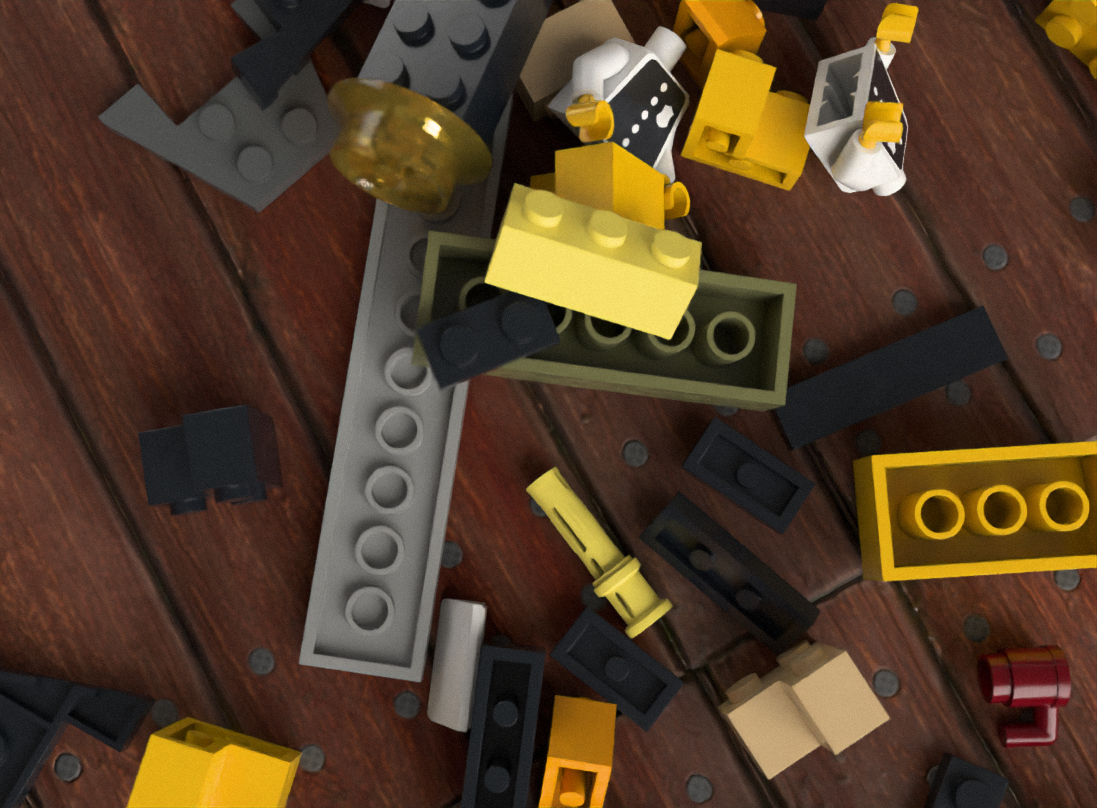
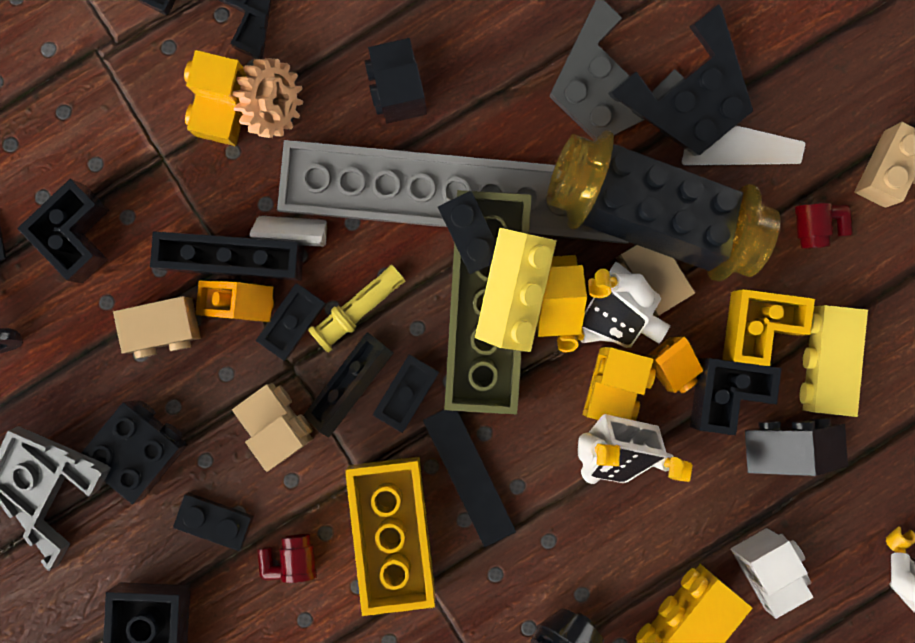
camera: 90 degrees right, 5 degrees up
(221, 687) = (268, 97): none -> light nougat gear

